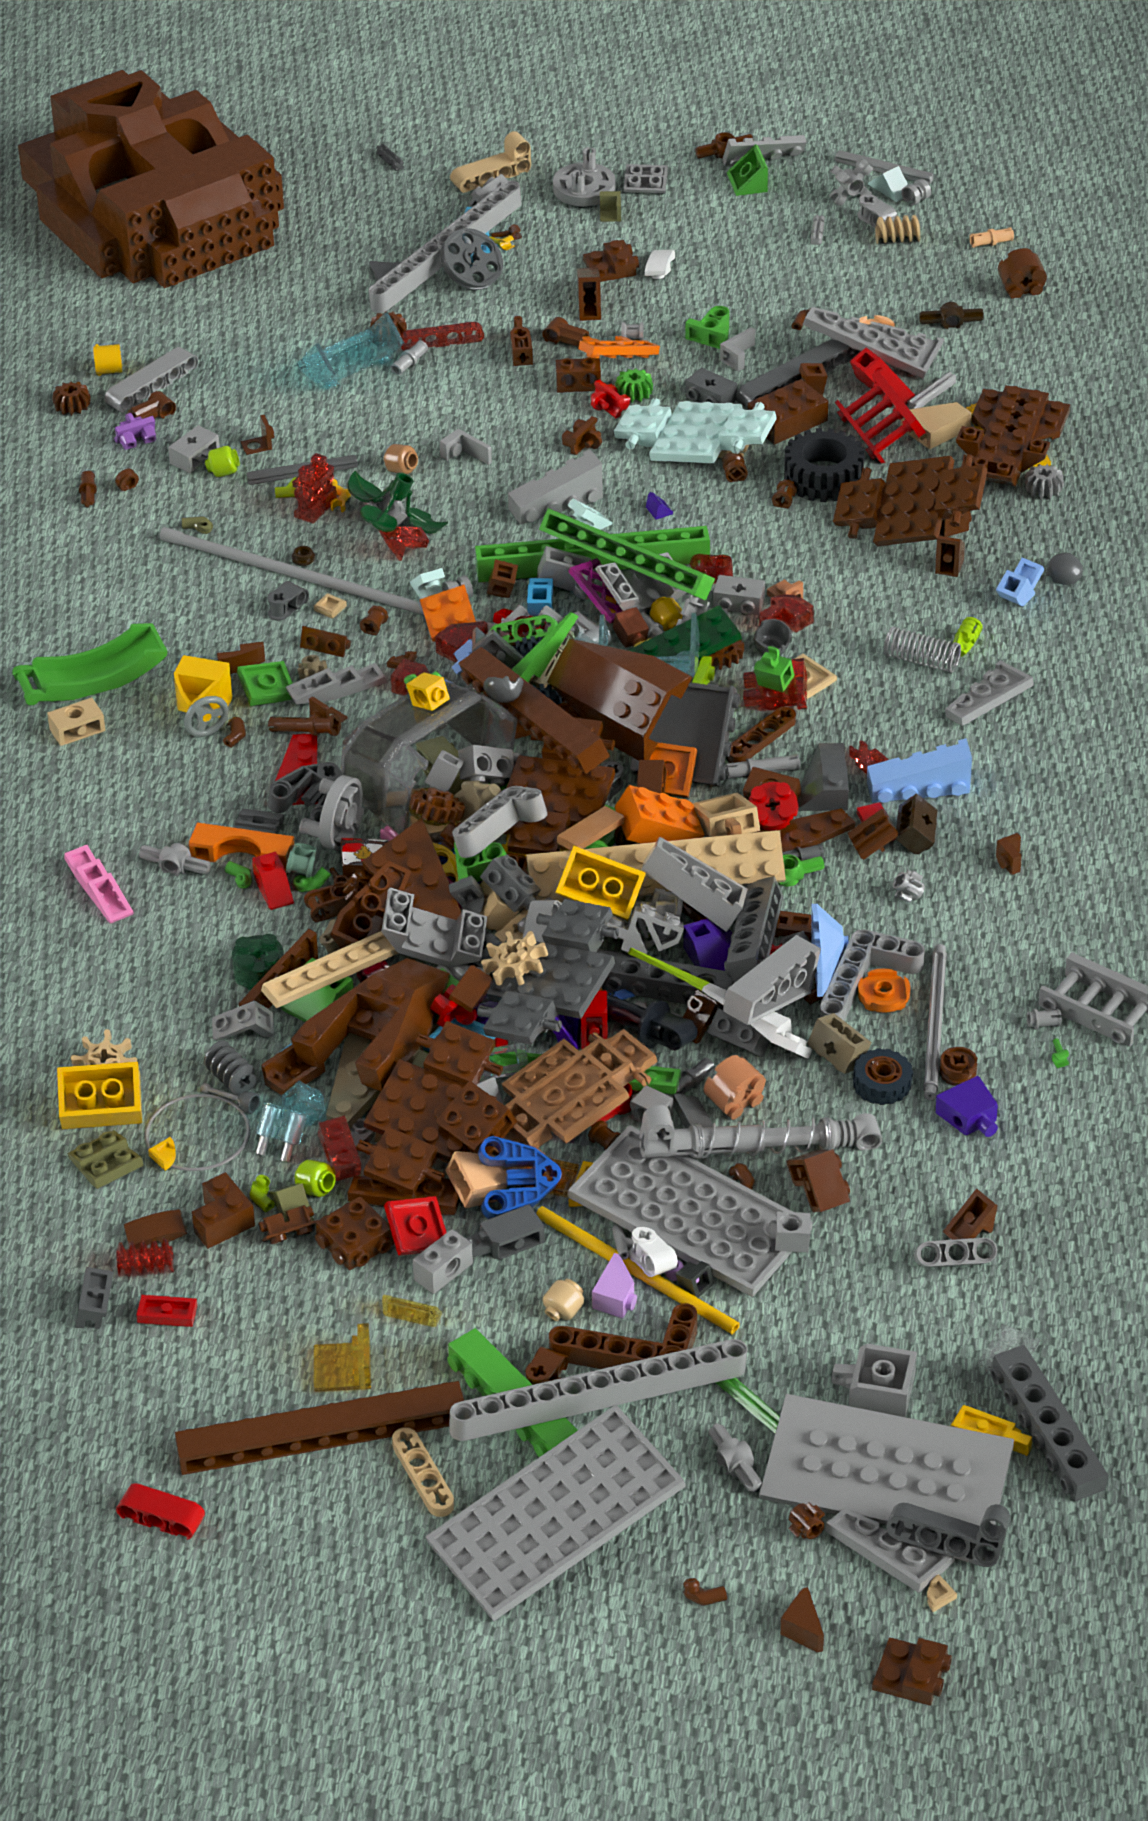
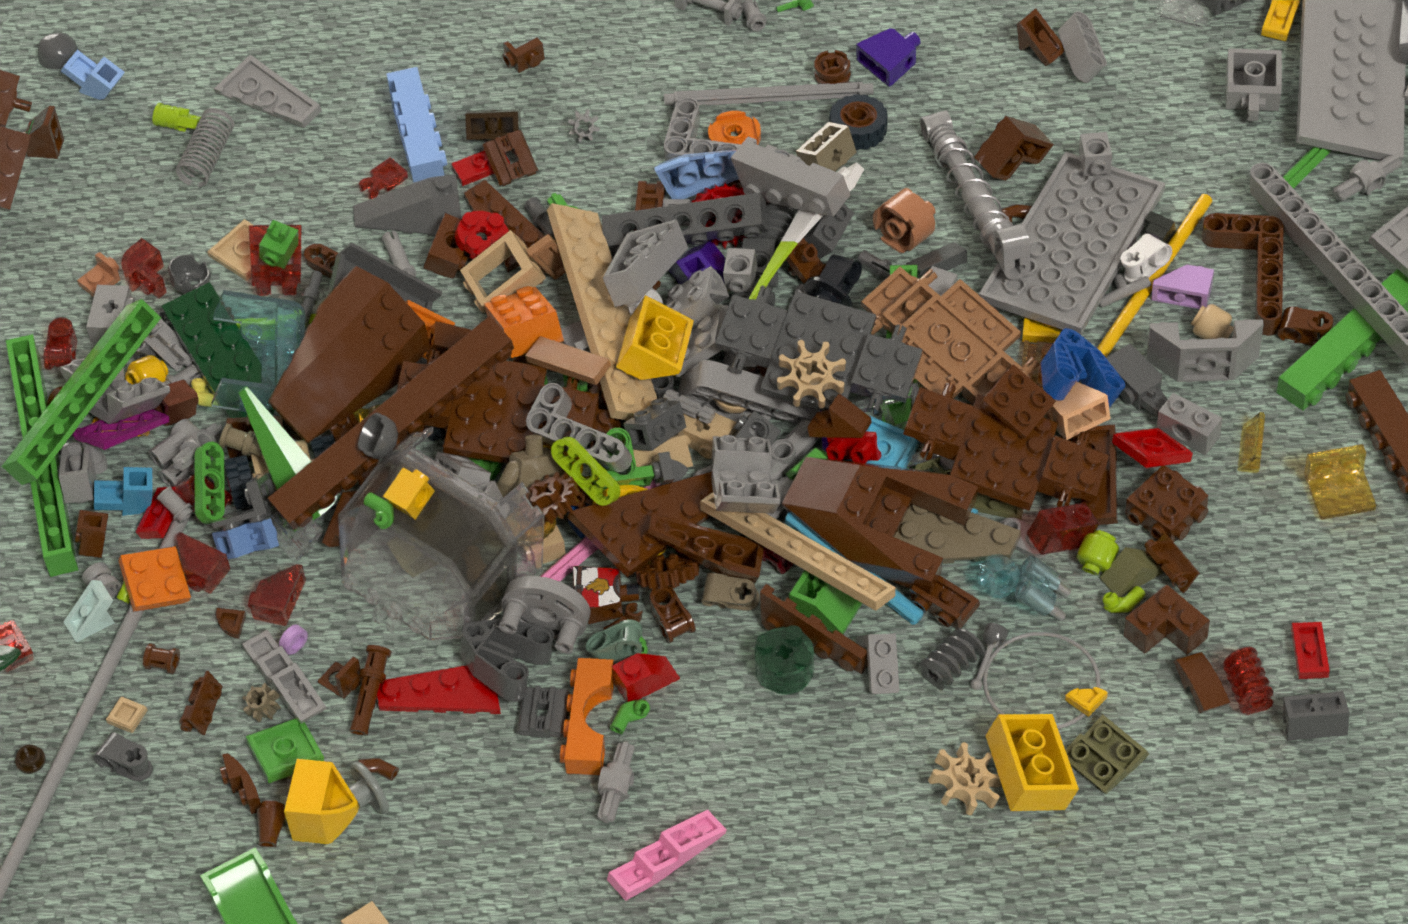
camera: 95 degrees left, 10 degrees up
(370, 689) = (293, 639): none -> lavender tile
(453, 821) = (597, 471): none -> lime beam
(522, 1256) = (1204, 358): none -> light grey slope
(685, 955) = (740, 270): none -> light grey brick

